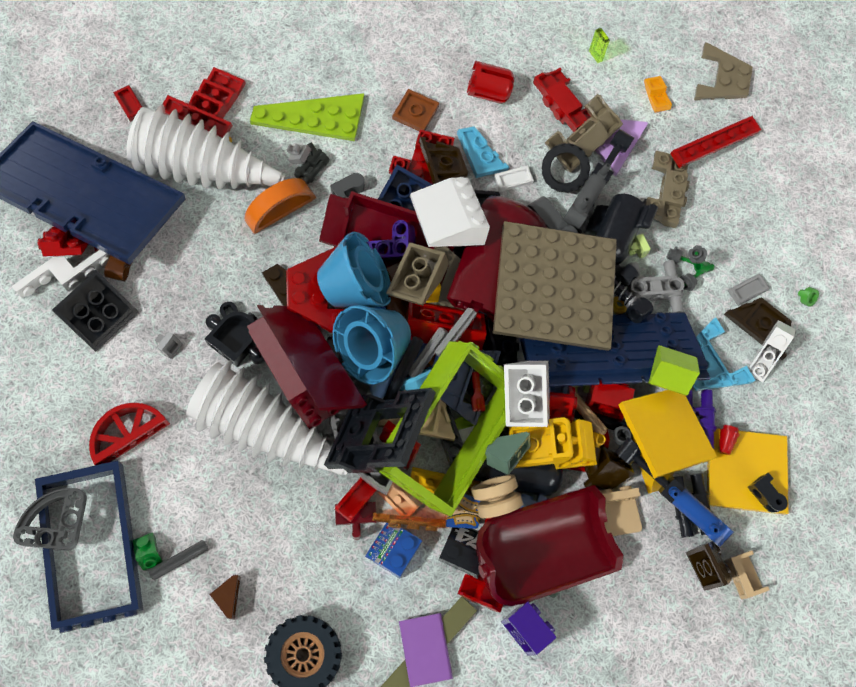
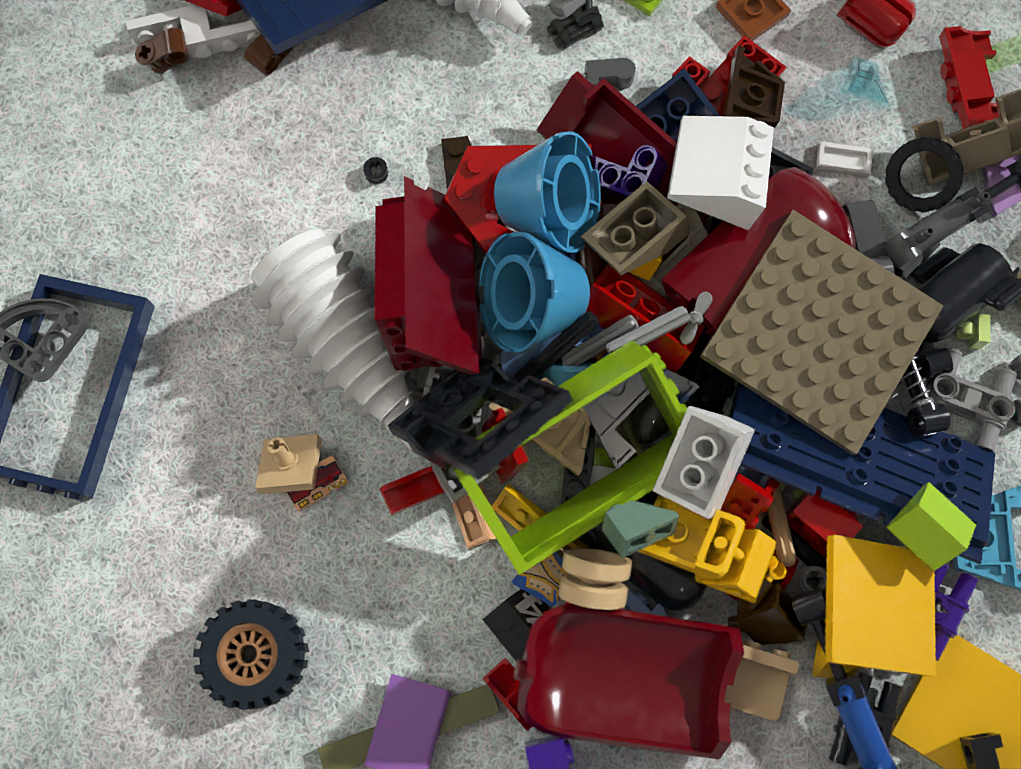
camera: 35 degrees right, 5 degrees up
(48, 295) = (163, 51): none -> reddish brown piece
(95, 310) = (211, 95): black slope -> none
(130, 440) = (175, 280): red window -> none
(146, 551) = (128, 428): green bracket -> none
(168, 344) = (279, 179): light grey tile -> none
(178, 559) = (162, 457): dark grey axle -> none
(227, 596) = (196, 533): reddish brown slope -> none
(232, 337) = (356, 202): black piece -> none
(266, 522) = (288, 464): none -> tan tile
(277, 203) = (506, 55): orange window -> none
(289, 526) = (328, 477): none -> slope
(365, 516) = (419, 516): dark red plate -> none
(394, 549) = (431, 578): blue slope -> none
(411, 521) = (470, 557): clear orange wing -> none
(477, 399) = (636, 436): red piece -> none
(479, 154) = (811, 104): medium azure wing -> none
(479, 300) = (696, 317): none -> light grey piece
(502, 127) = (864, 81): none -> clear light blue slope
(617, 309) = (897, 402): yellow plate -> none
(728, 439) = (965, 658): red cone -> none

